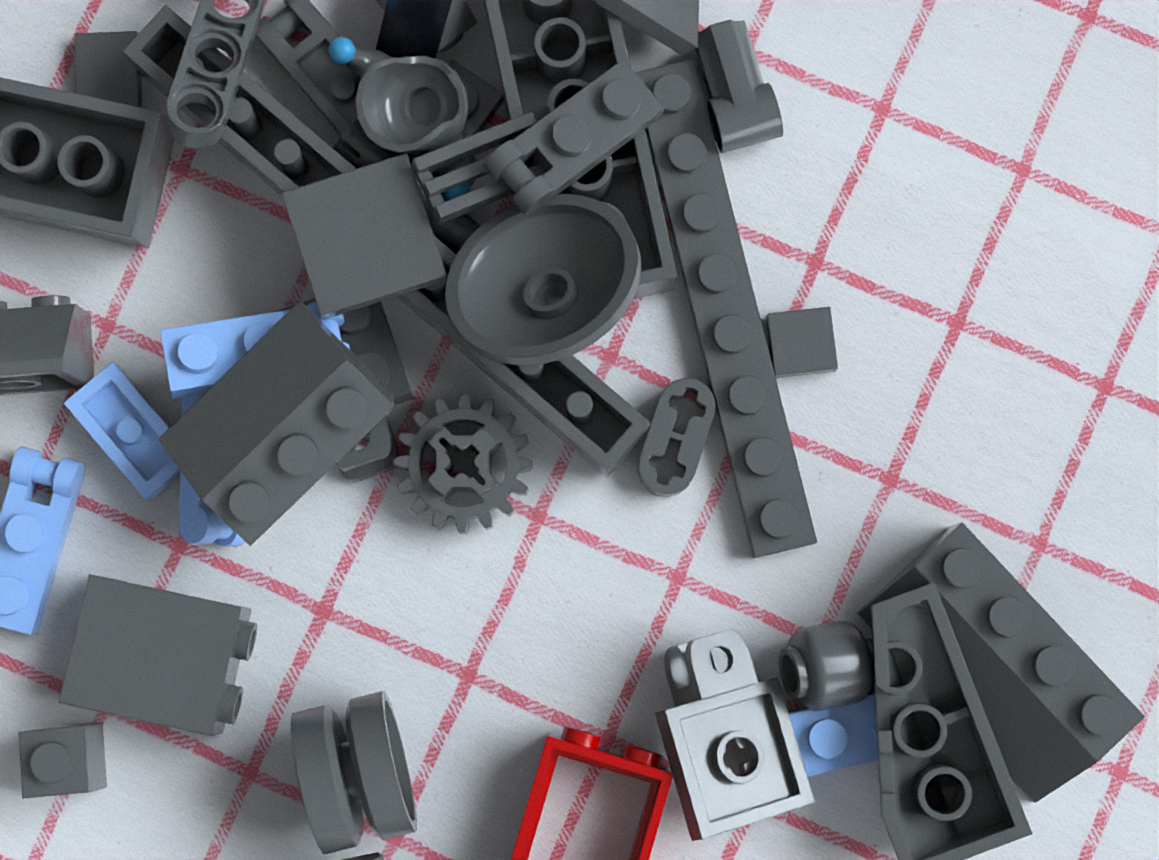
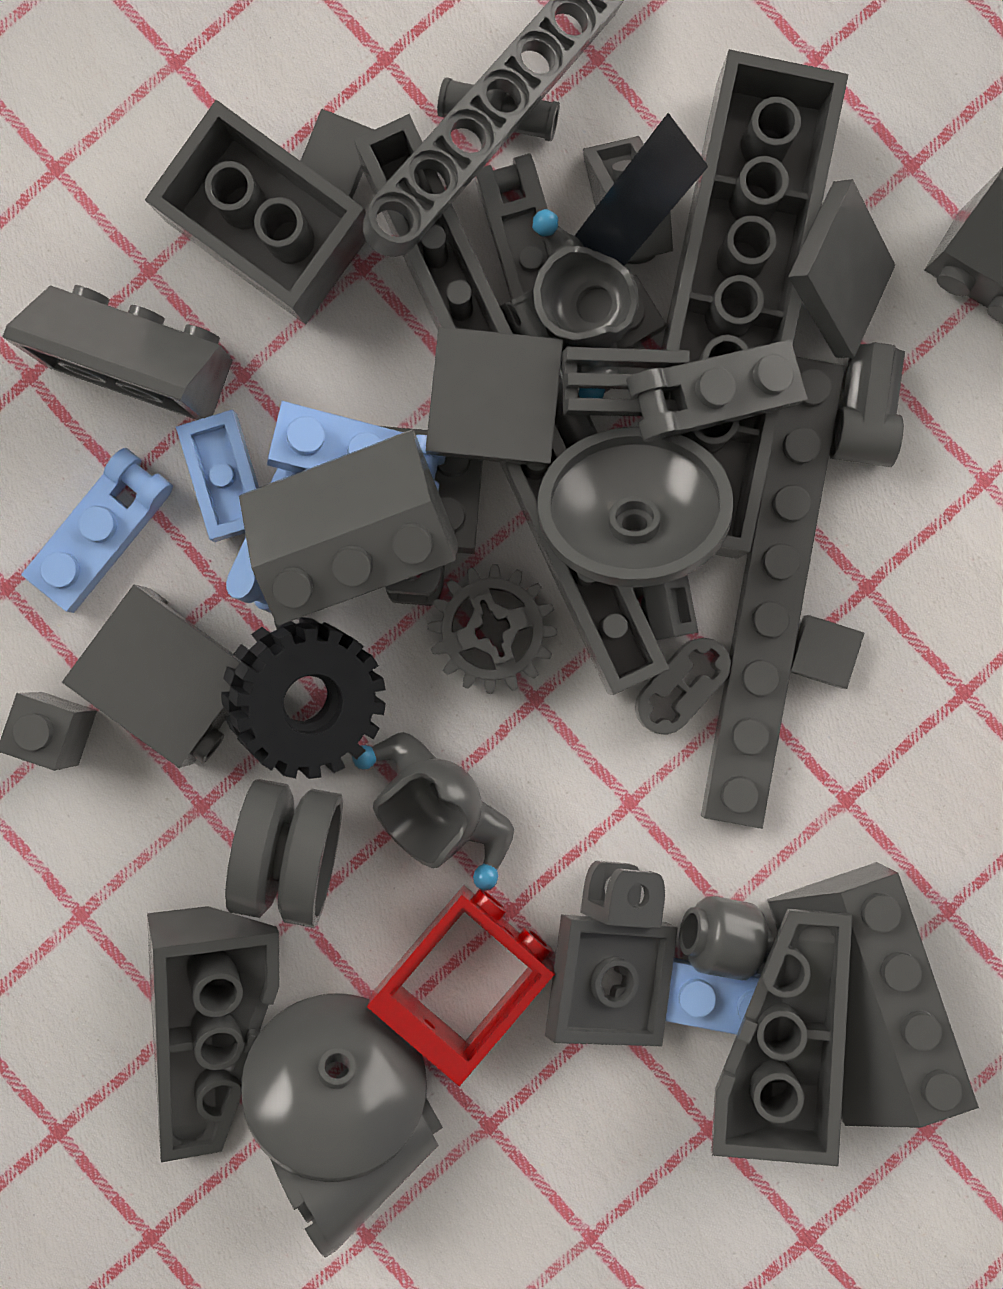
camera: 25 degrees right, 5 degrees up
(260, 603) = (270, 670): none -> black tyre
(484, 665) = (436, 808): none -> dark grey piece
(628, 365) = (669, 609): none -> dark grey plate

